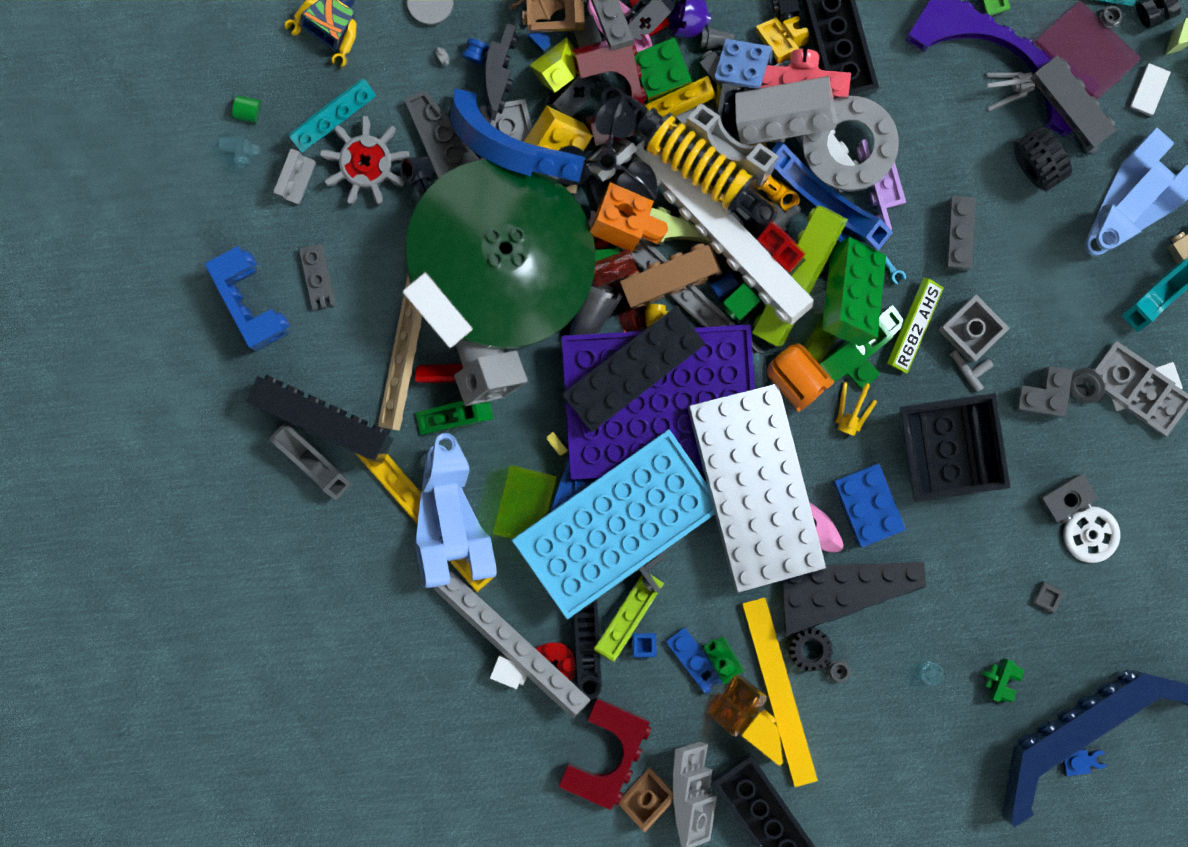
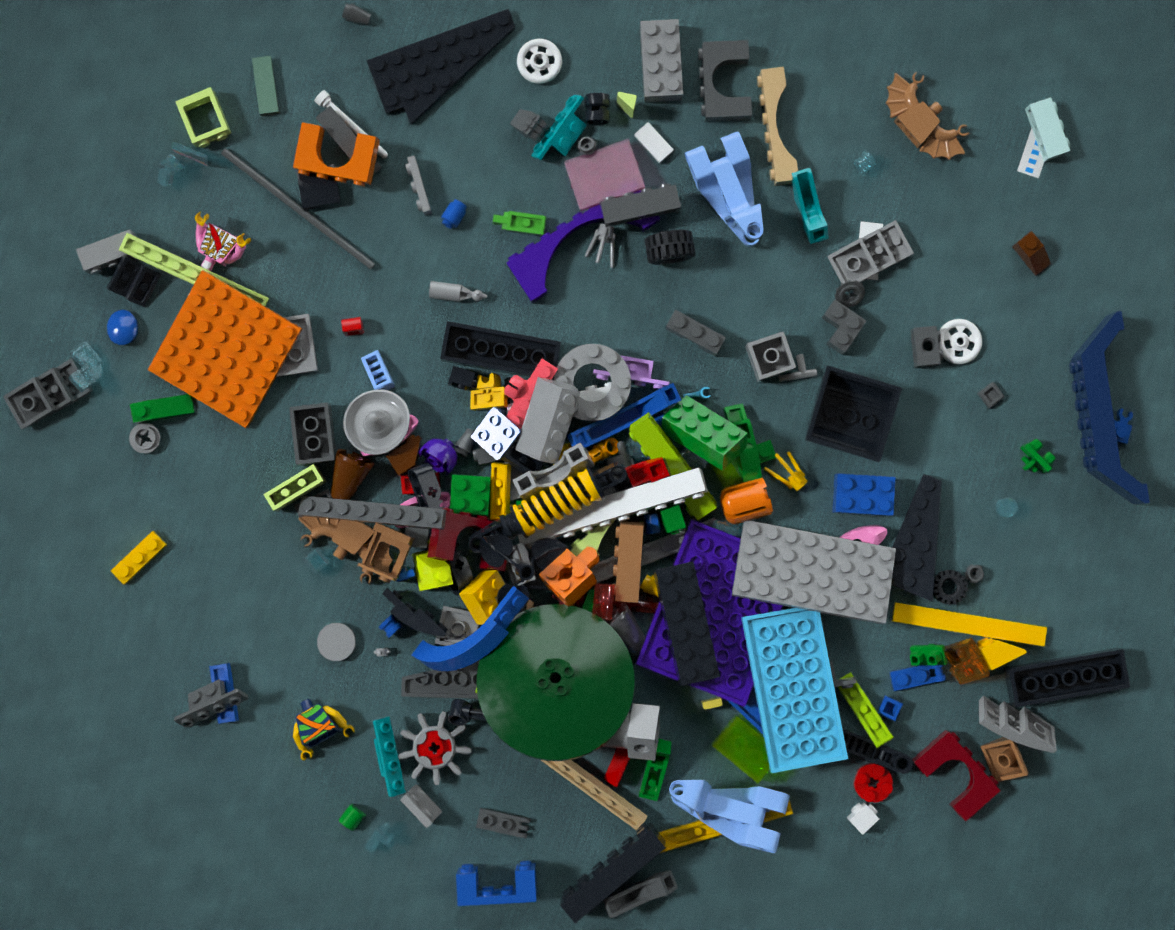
camera: 70 degrees left, 0 degrees up
(437, 310) = (578, 750): white sticker -> none
(513, 645) = (846, 806): light grey plate -> none
(915, 325) = (747, 397): tile -> none

